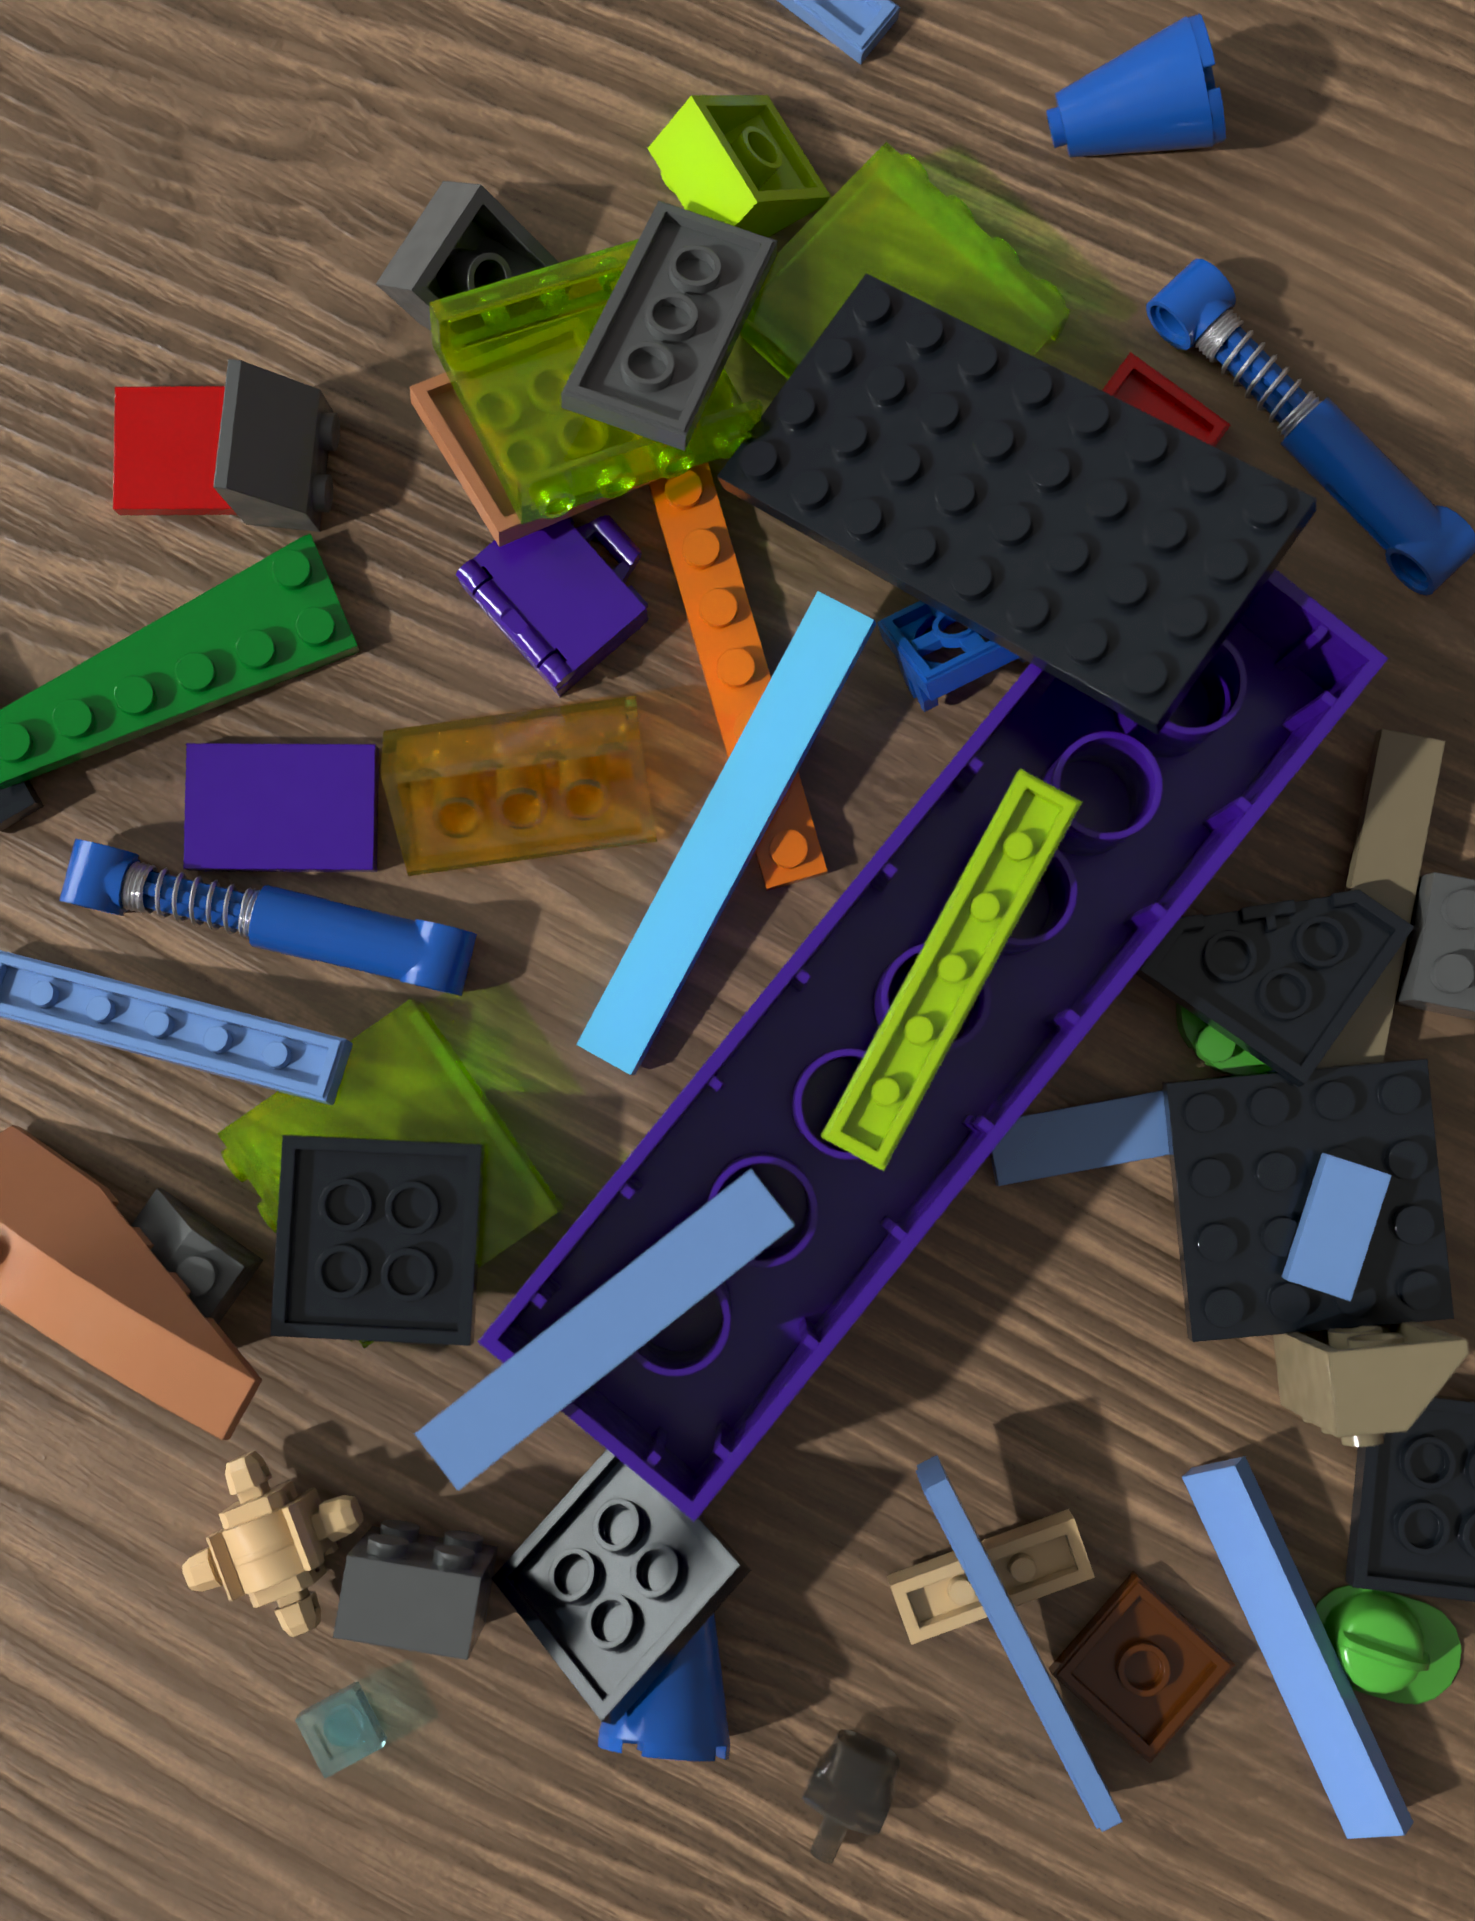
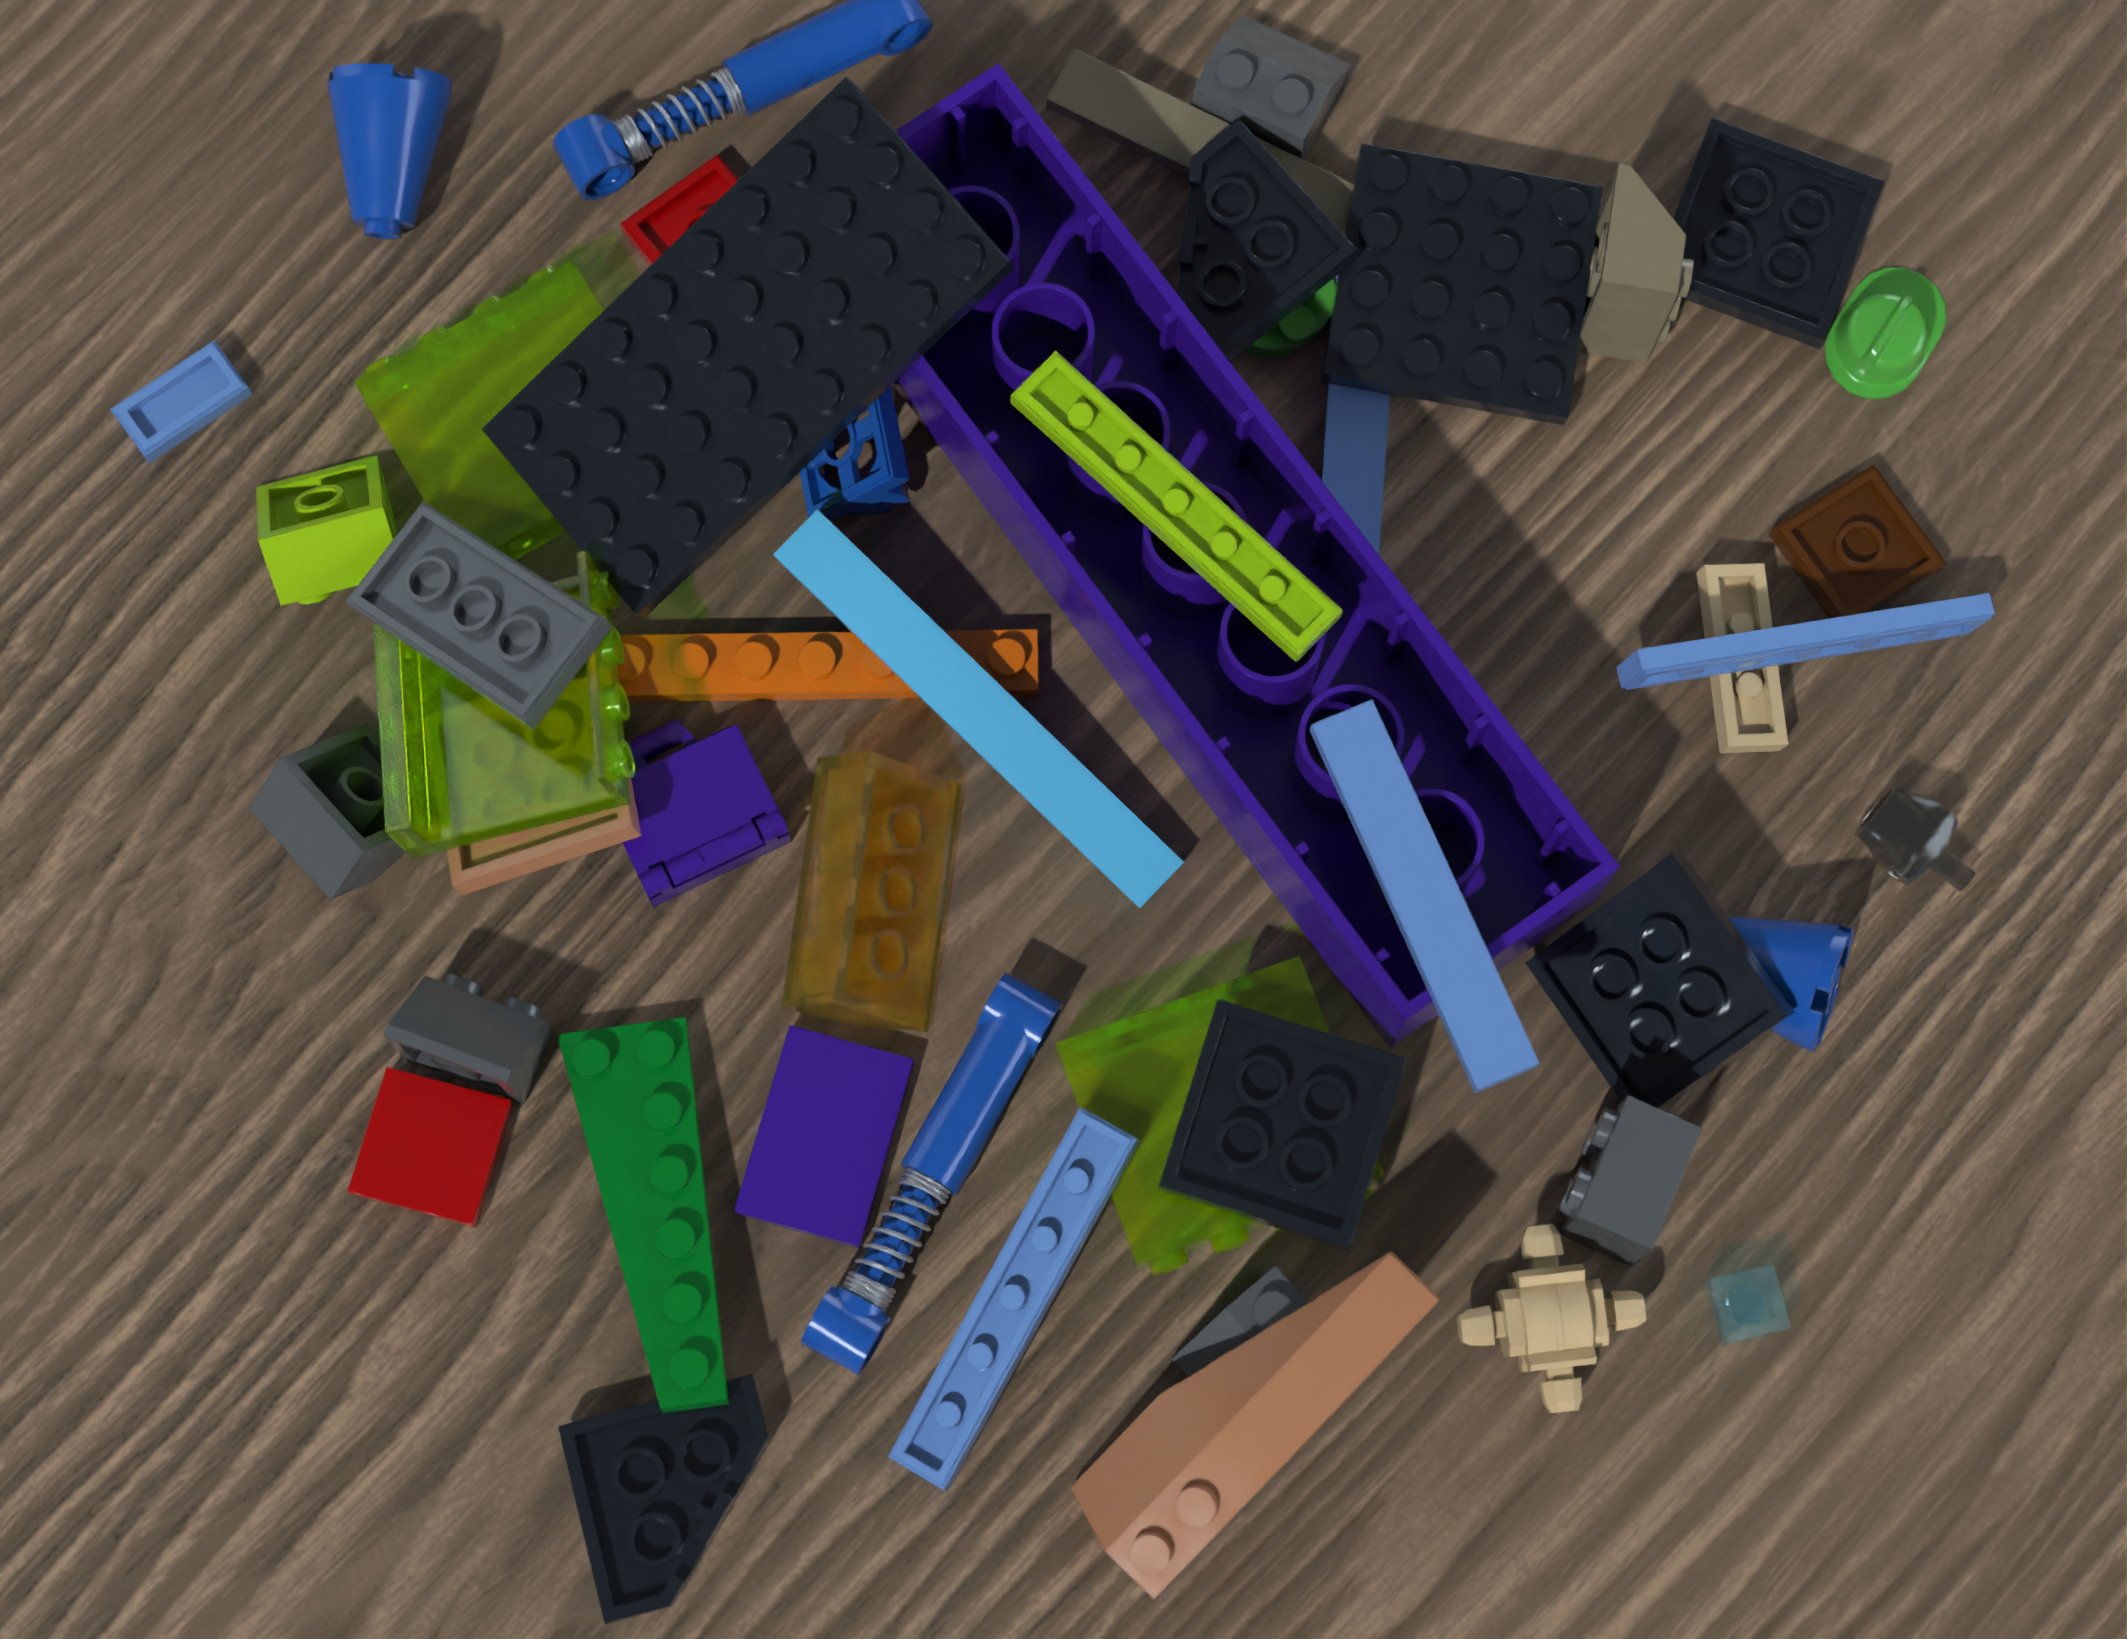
camera: 80 degrees left, 10 degrees down
(1297, 1650) = (1869, 405): medium blue tile -> none
(1336, 1226) = (1493, 259): medium blue tile -> none

